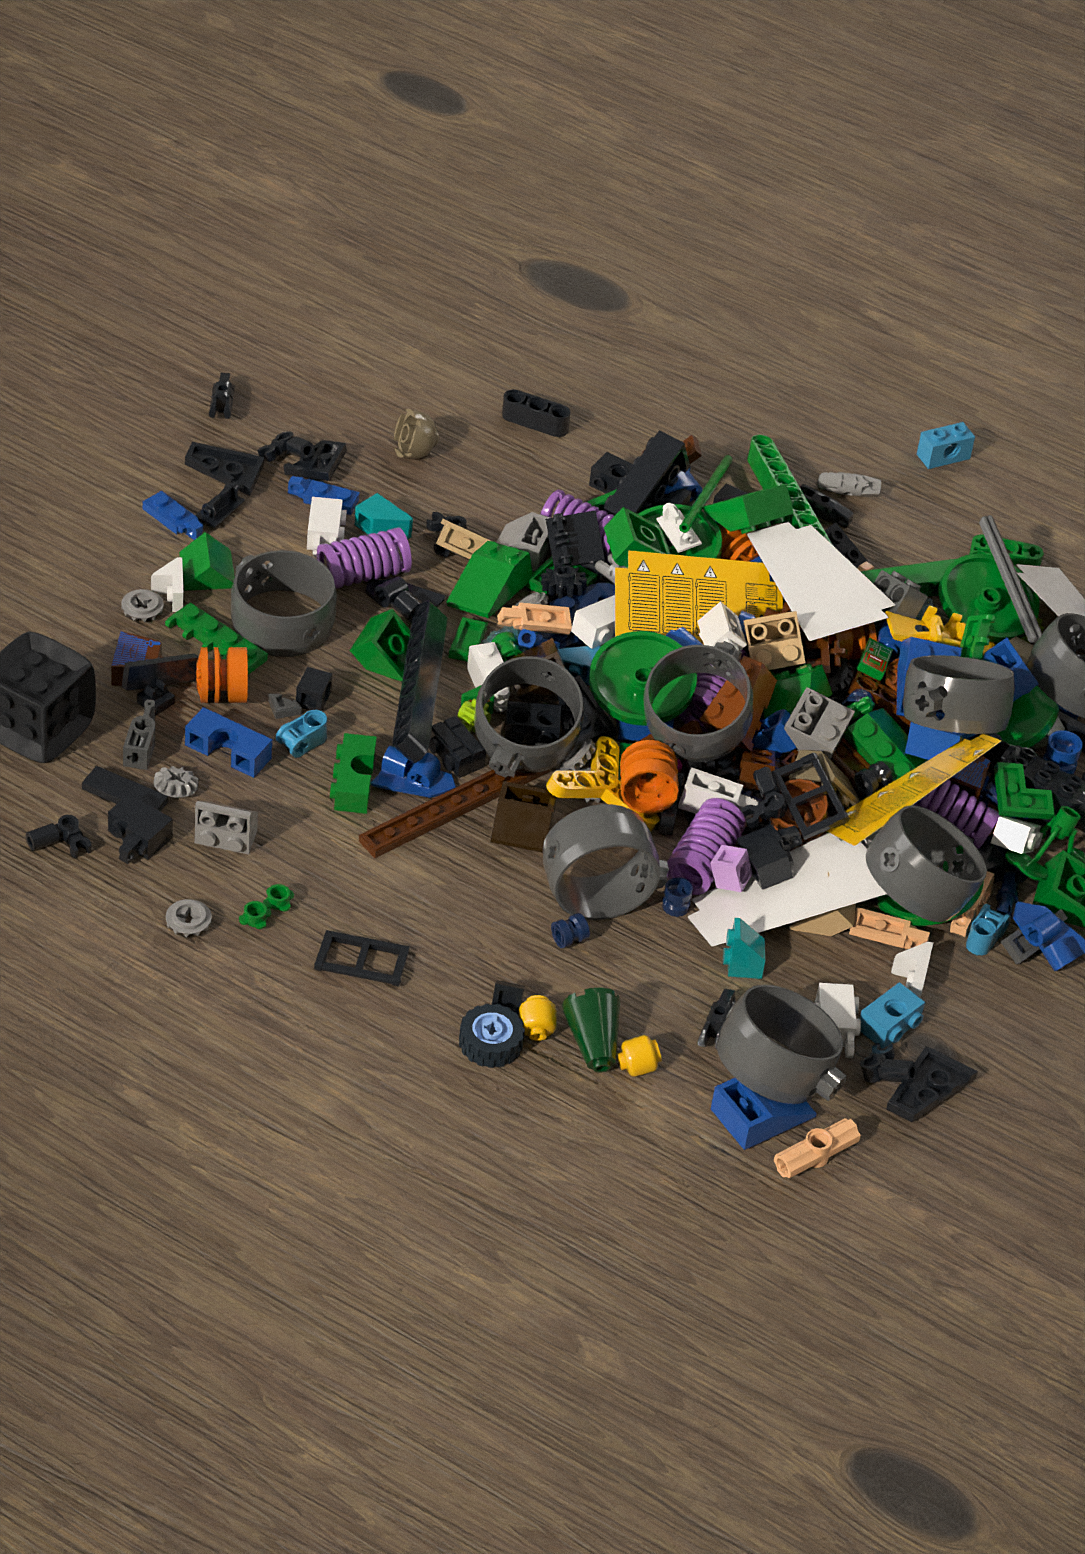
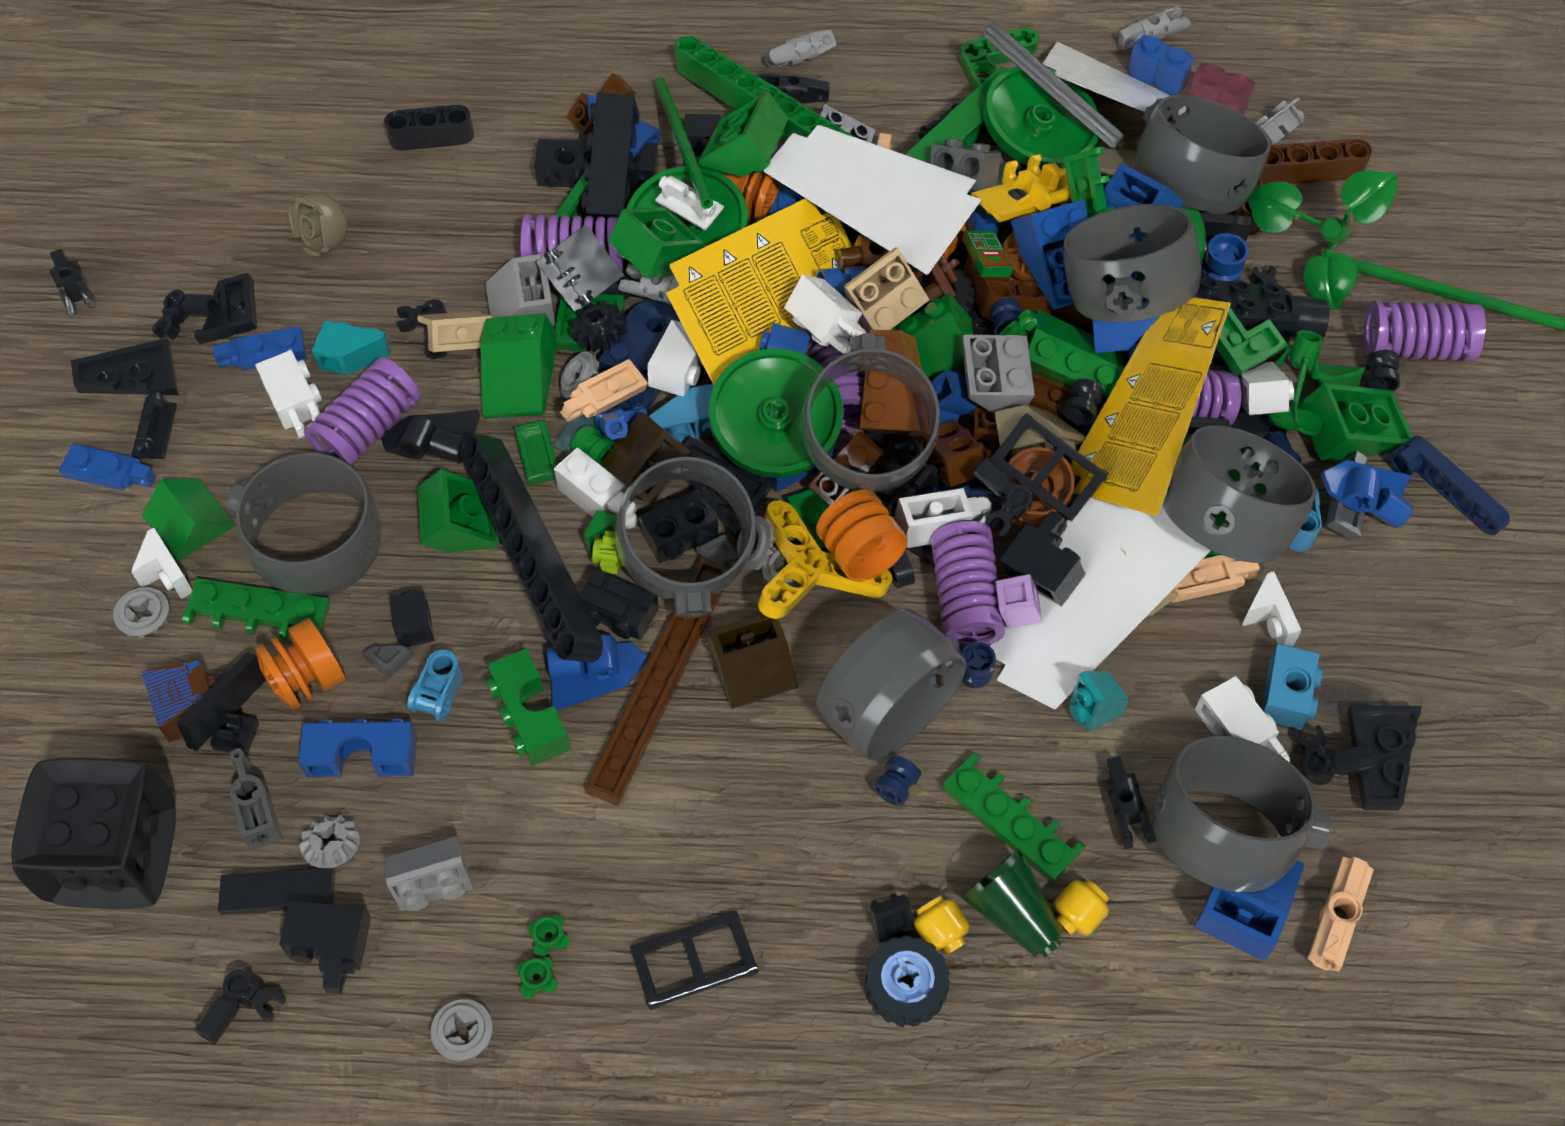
camera: 25 degrees left, 15 degrees up
(633, 993) = (1011, 820): none -> green hinge

